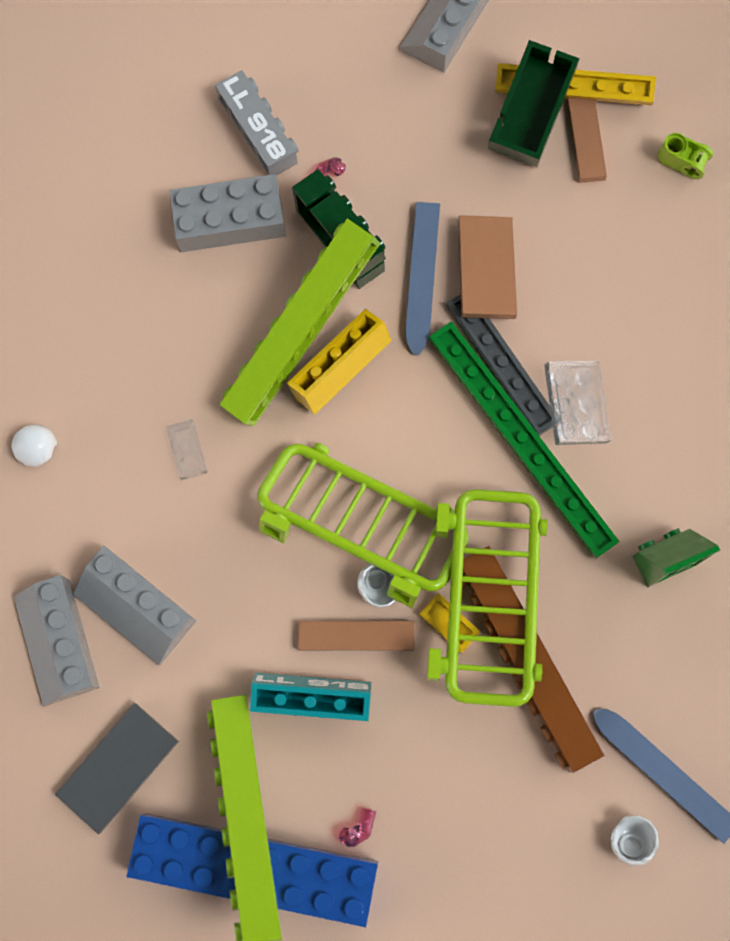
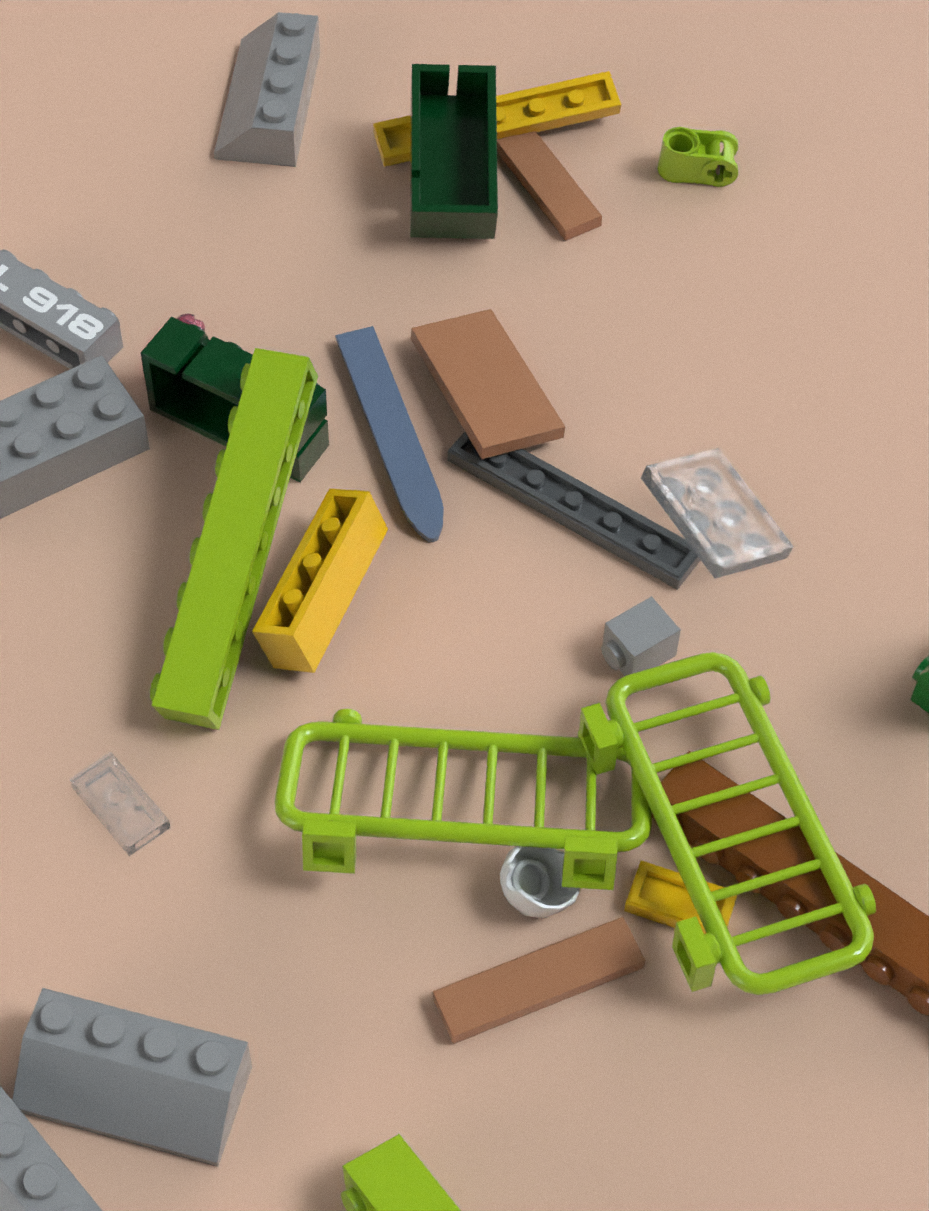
camera: 30 degrees left, 20 degrees down
(310, 696) = (512, 1095): teal brick -> none
(497, 464) = (640, 638): none -> light grey brick
(524, 440) = (692, 607): green plate -> none

